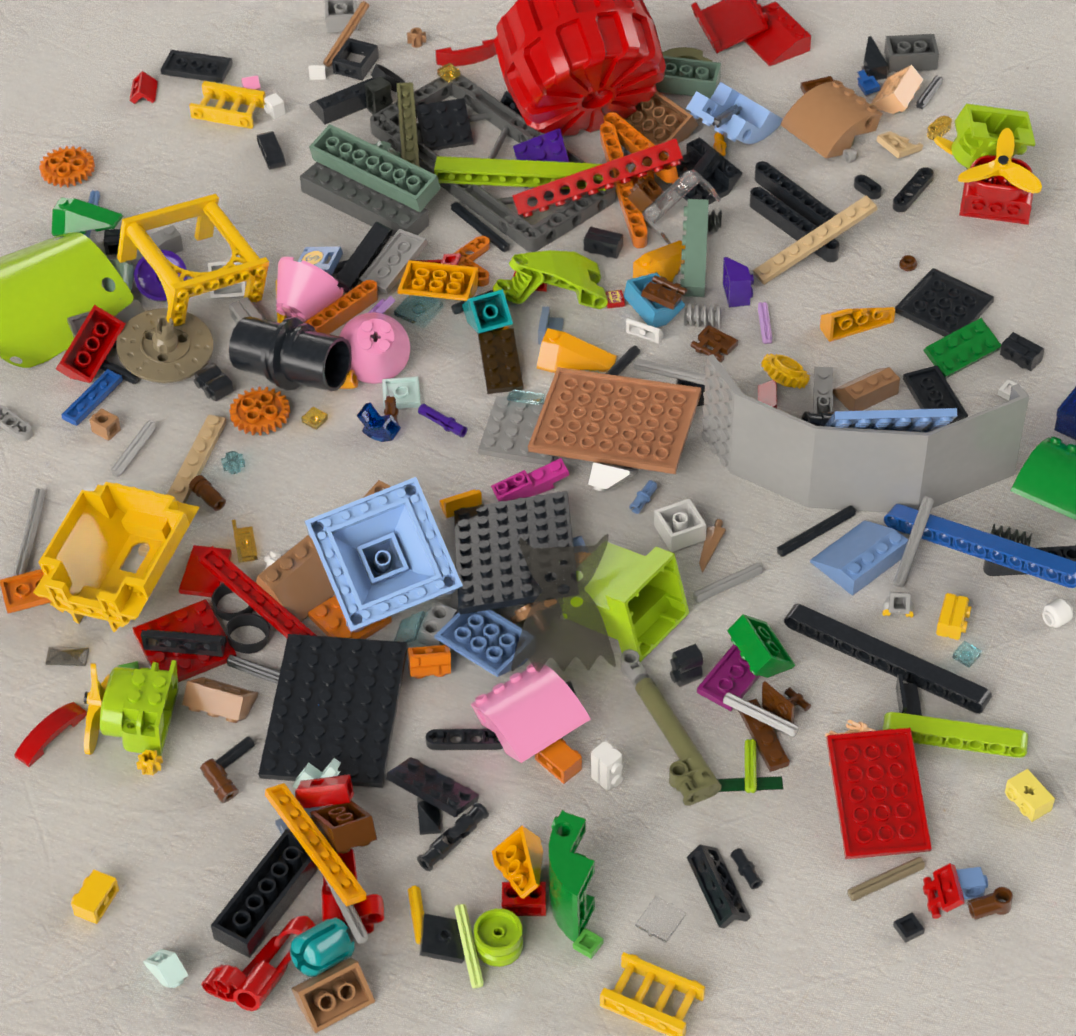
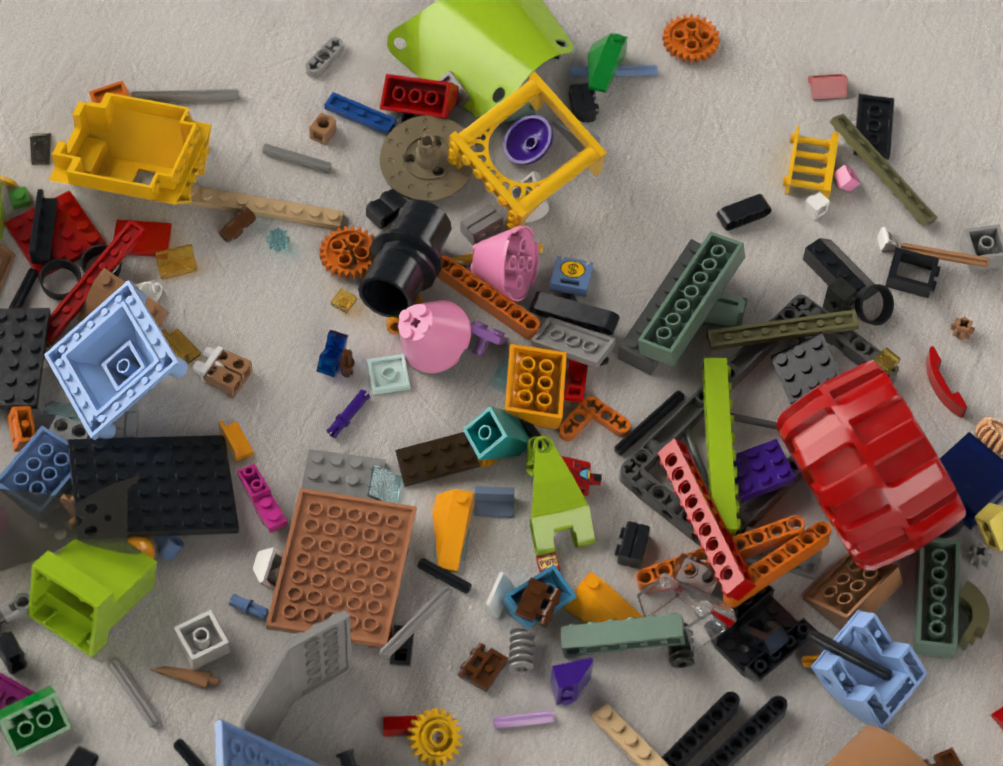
camera: 80 degrees right, 10 degrees up
(253, 59) = (883, 170): none -> olive plate

